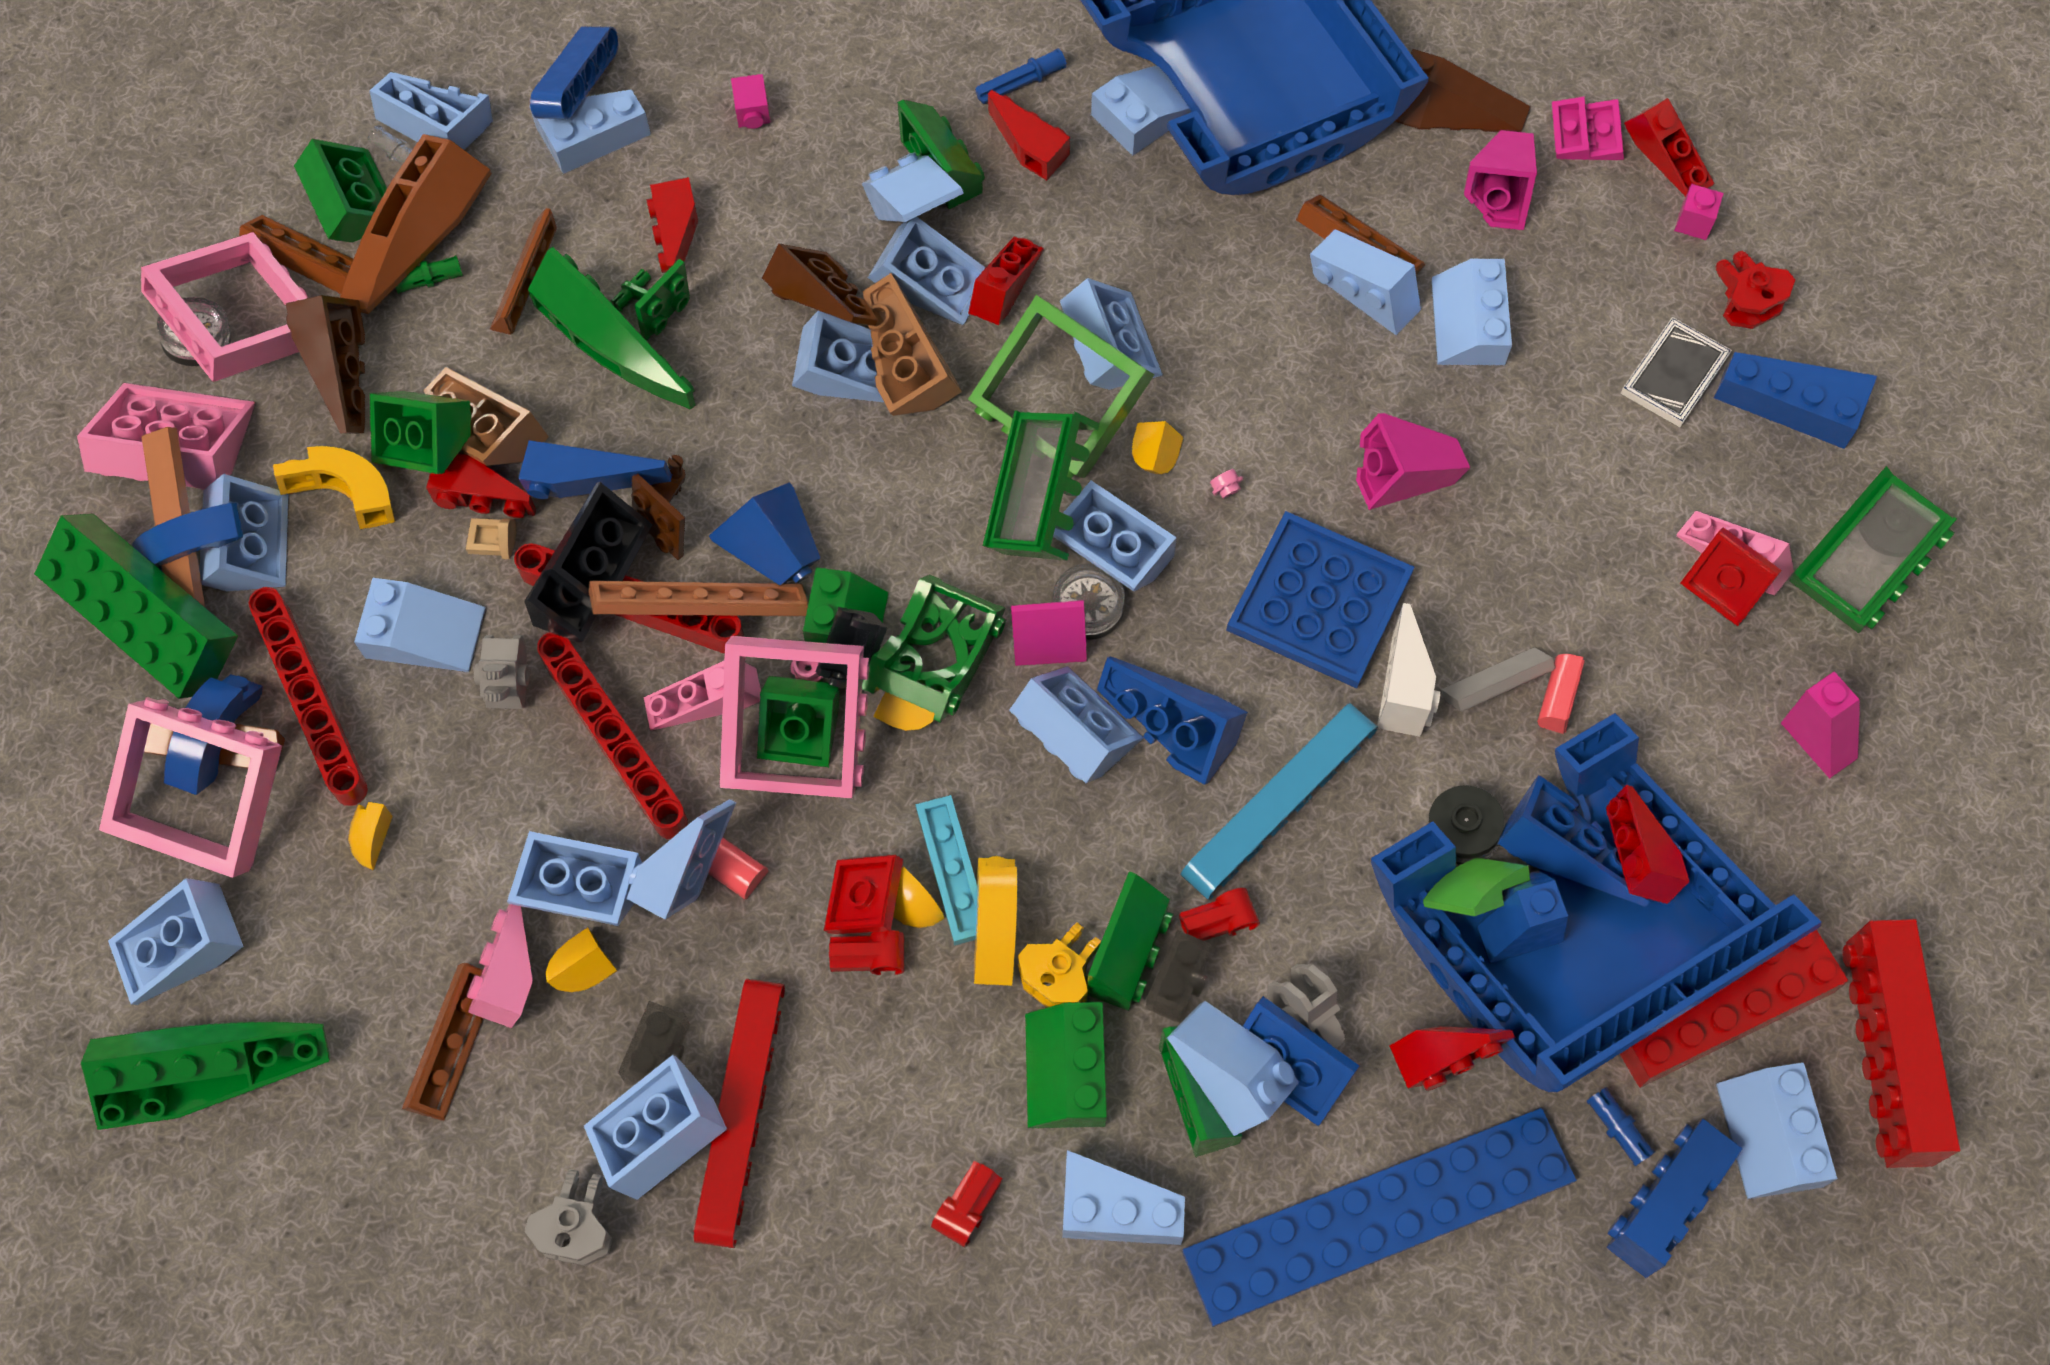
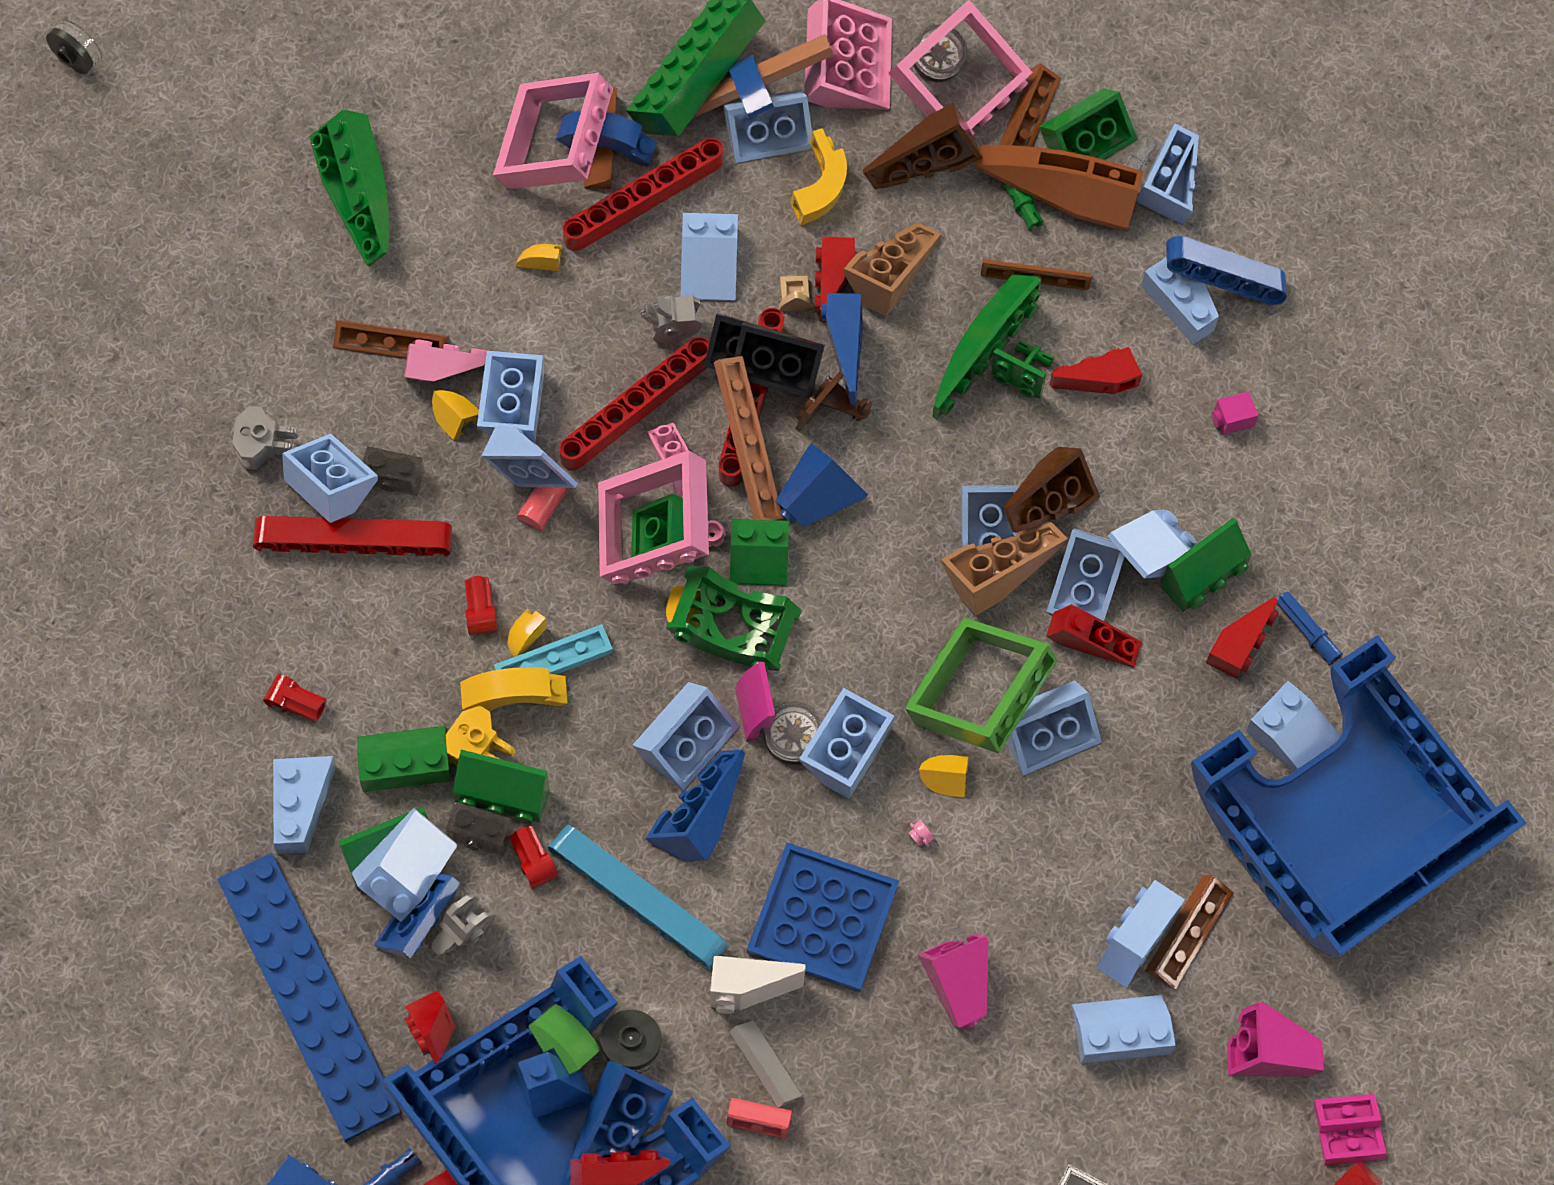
camera: 80 degrees right, 0 degrees up
(175, 940) = (447, 152): light blue slope -> none
(417, 430) = (871, 220): green slope -> none
(856, 629) = (726, 555): black hinge -> none
(863, 895) = (523, 595): red tile -> none
(1034, 483) = (881, 666): green window -> none
(1461, 100) = (1356, 997): reddish brown wedge -> none

